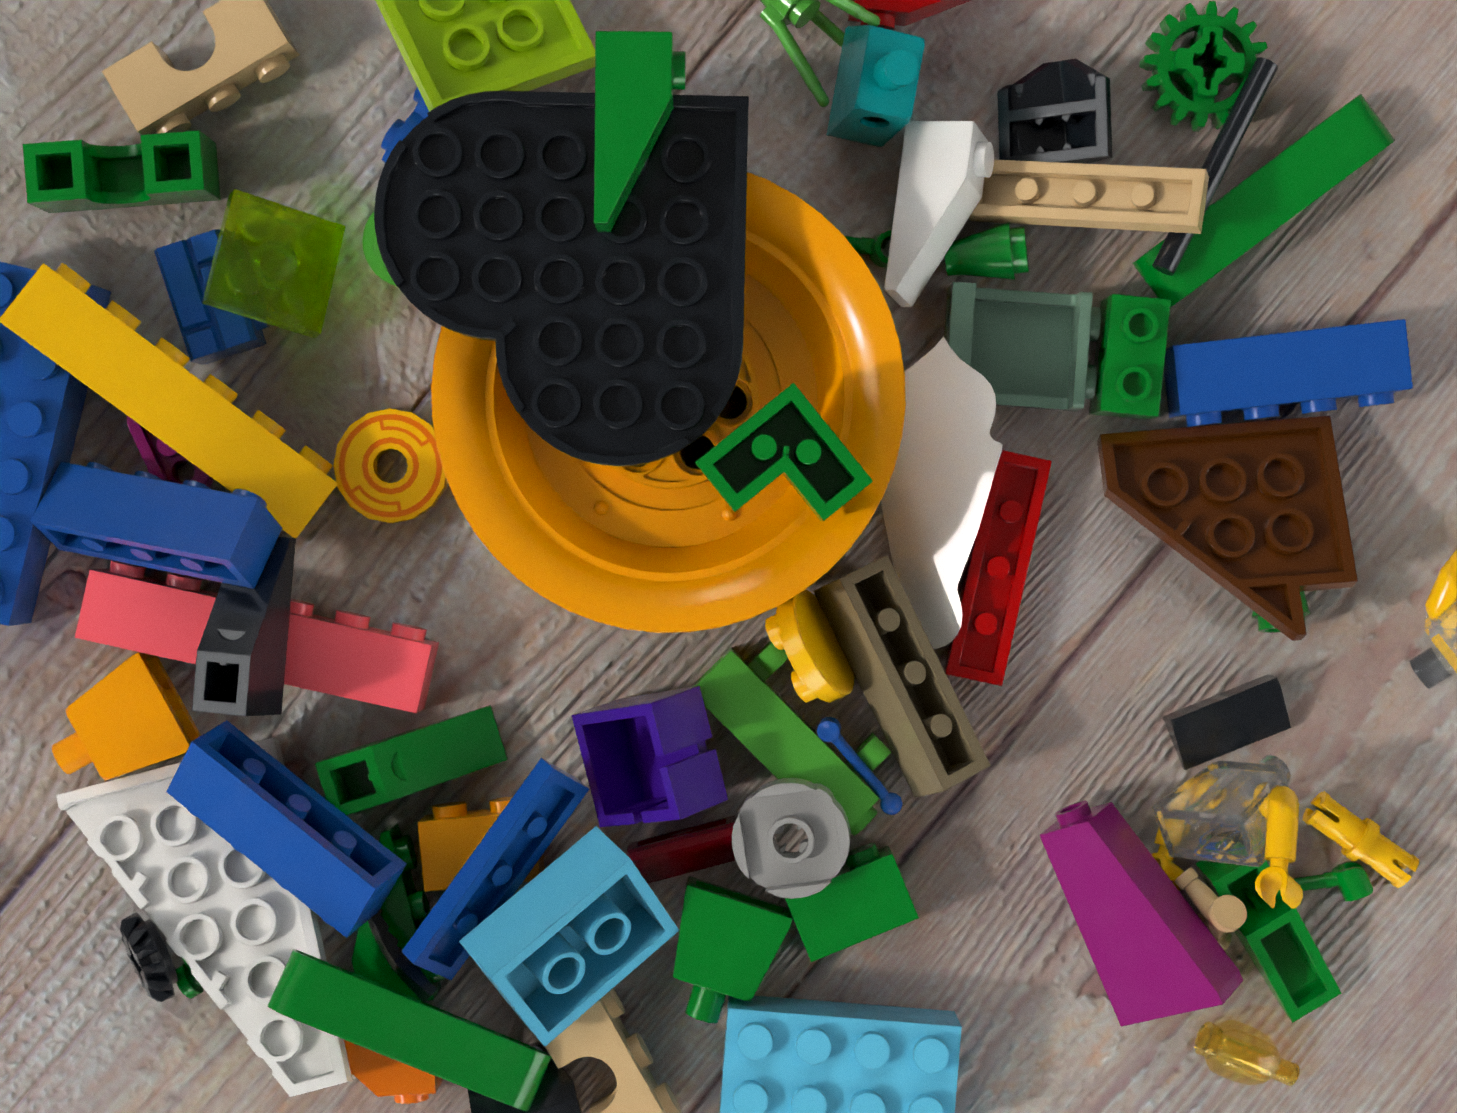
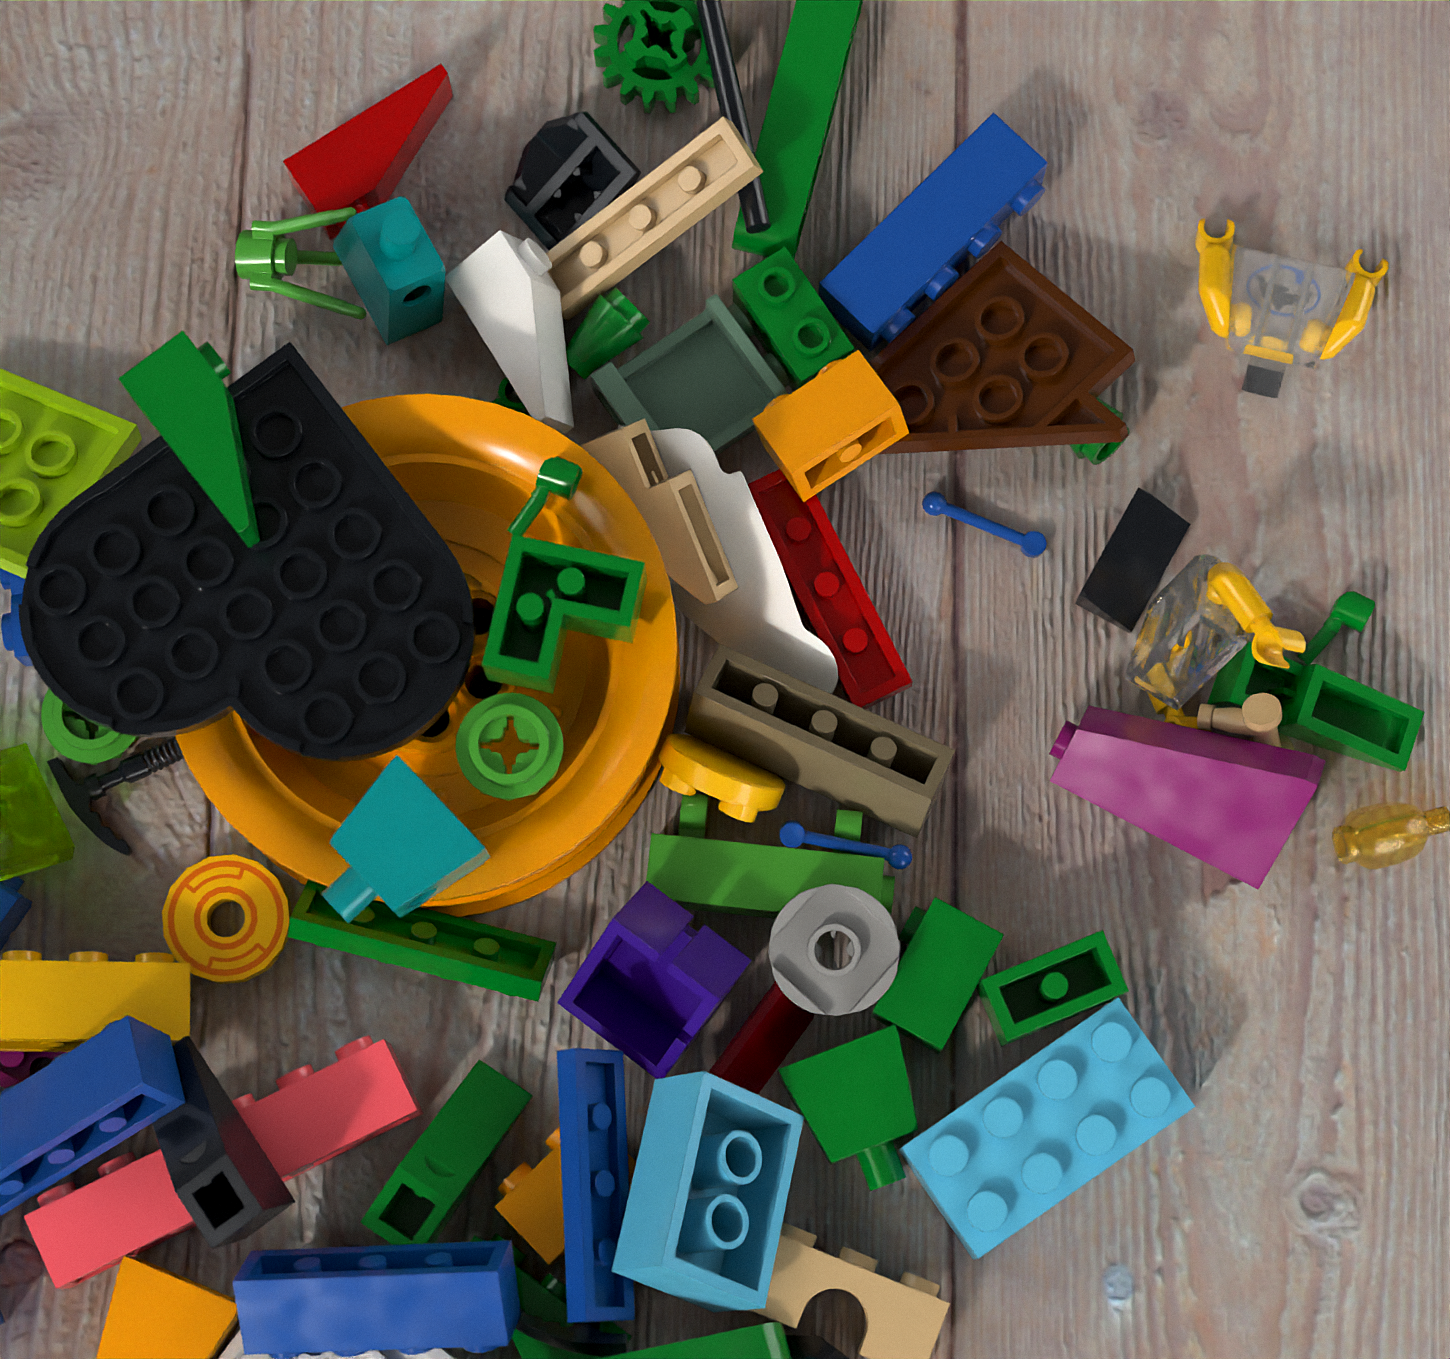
camera: 40 degrees left, 10 degrees down
(355, 294) = (129, 770): none -> black piece
(535, 624) = (428, 943): none -> green plate
(536, 539) = (400, 846): none -> teal torso
(642, 528) = (487, 725): none -> bright green gear
(863, 355) = (554, 477): none -> green hand
(922, 980) = (1051, 988): none -> green brick
(929, 428) = (670, 508): none -> tan slope
(1095, 458) = (830, 425): none -> light orange brick
(1166, 650) = (1031, 544): none -> blue hinge
(1360, 839) = (1329, 569): yellow pin -> none

